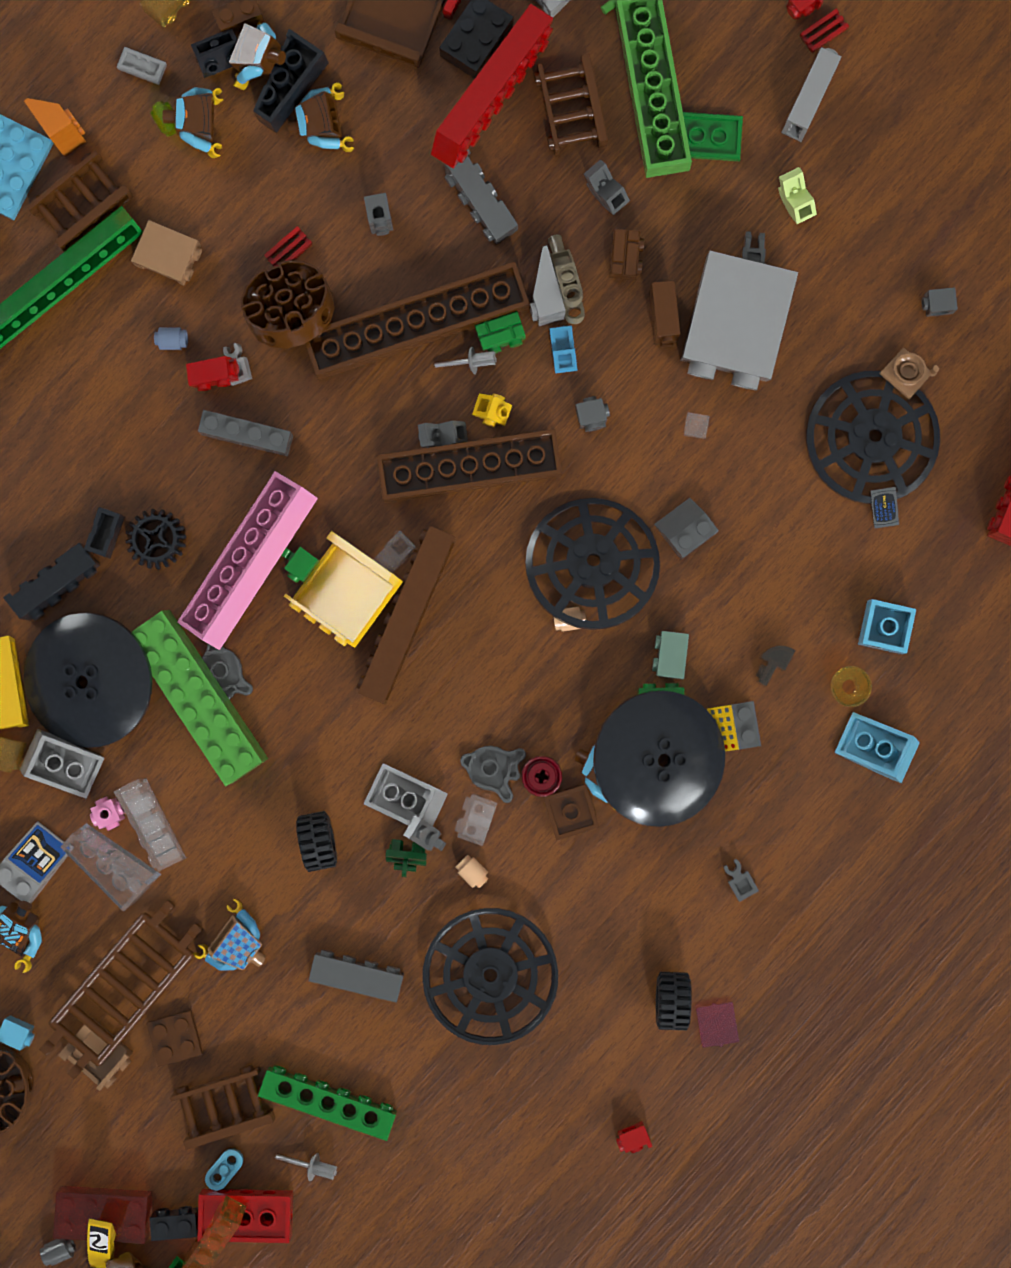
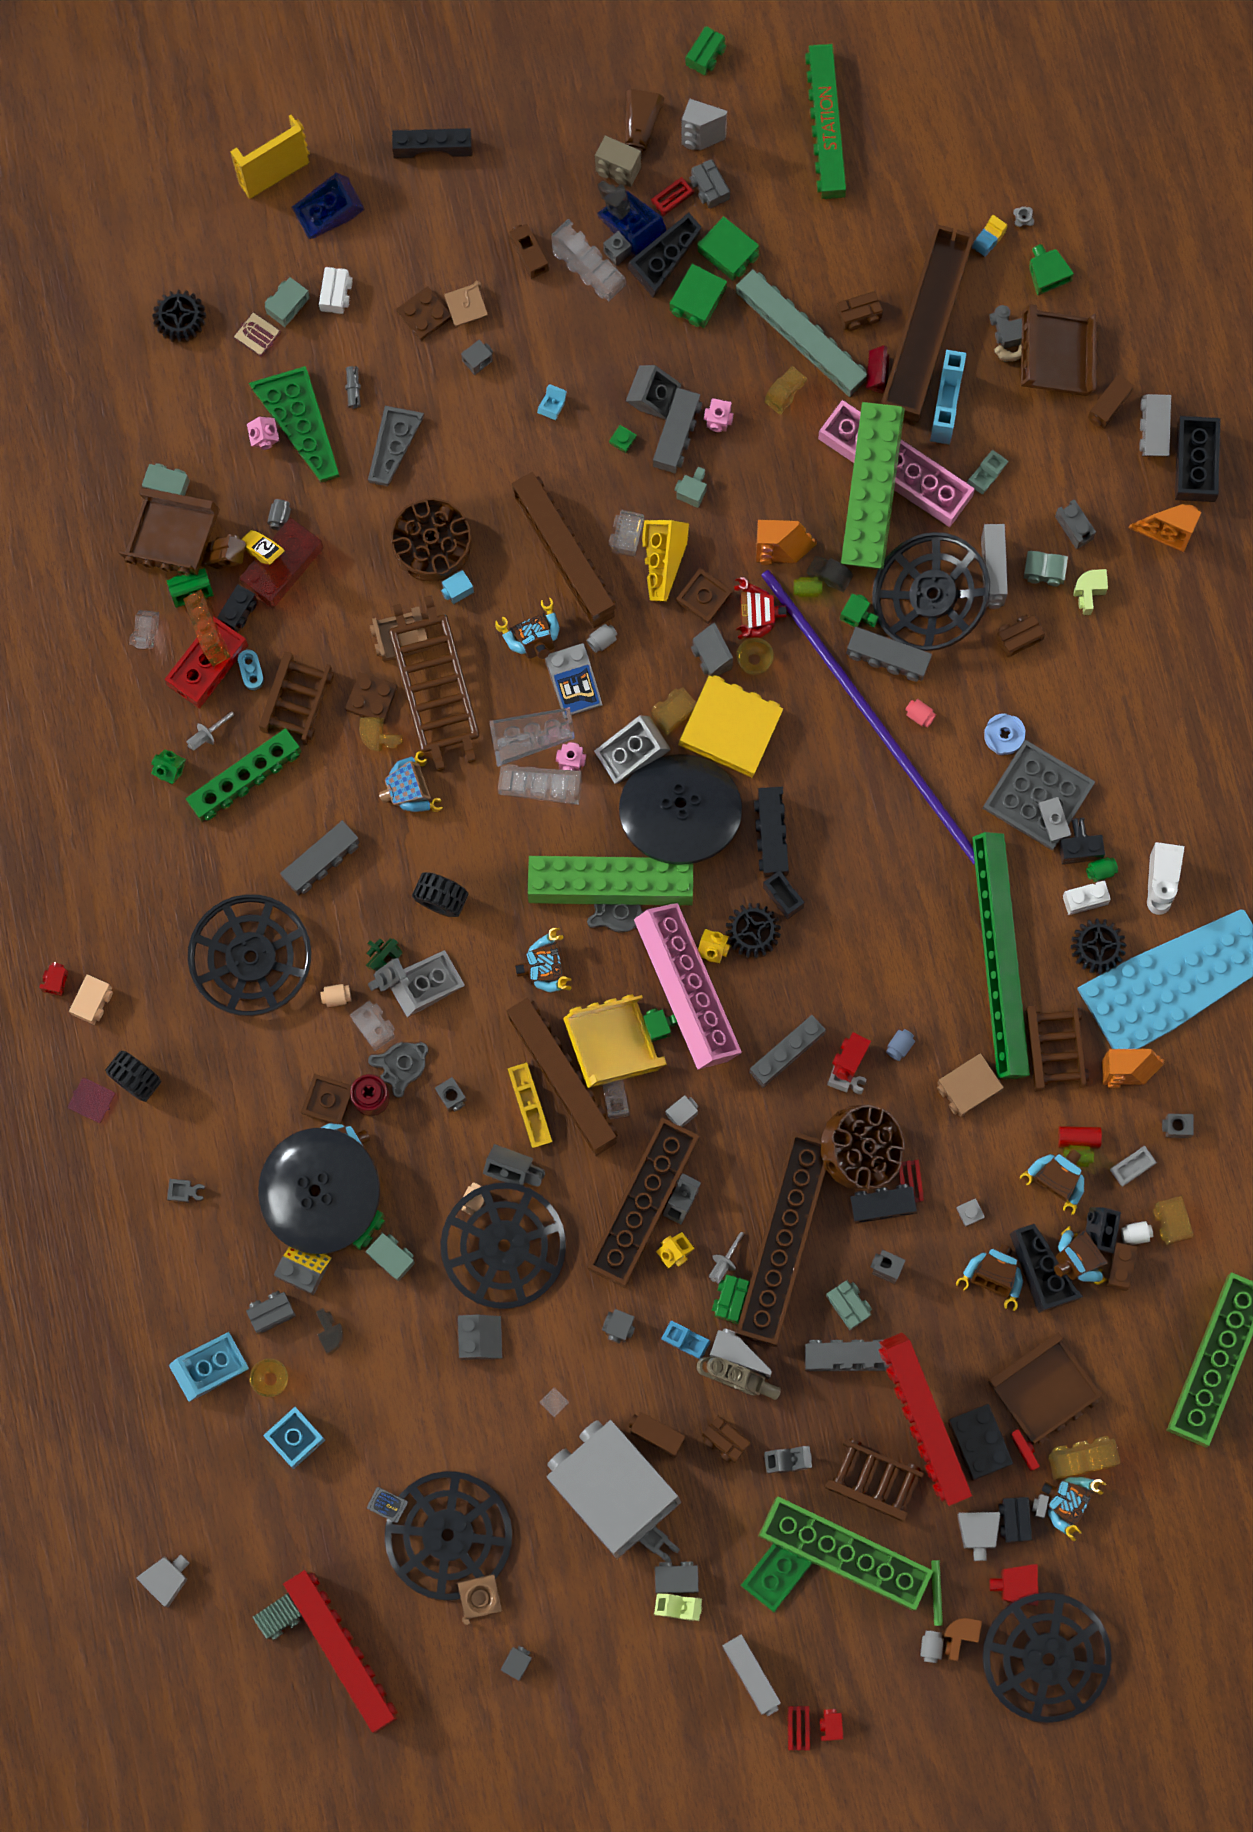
camera: 125 degrees right, 10 degrees down
(72, 42) = (1187, 1124): none -> dark grey brick
(146, 129) = (1079, 1136): none -> red brick
(194, 563) = (713, 946): none -> yellow brick
(199, 23) = (1136, 1233): none -> white brick
(211, 1009) = (372, 734): none -> clear yellow brick
(280, 179) = (970, 1212): none -> light grey plate
(315, 703) = (545, 964): none -> torso
(325, 256) = (883, 1204): none -> black brick
(364, 489) = (682, 1111): none -> light grey brick
(367, 1179) = (168, 766): none -> green brick
(434, 228) = (849, 1305): none -> sand green brick
(451, 628) = (529, 1105): none -> yellow slope
(490, 714) = (449, 1086): none -> dark grey brick
(518, 603) = (512, 1167): none -> dark grey brick
(629, 1091) = (91, 1000): none -> light nougat brick
(773, 215) = (676, 1578): none -> dark grey brick
(793, 726) = (270, 1312): none -> dark grey brick

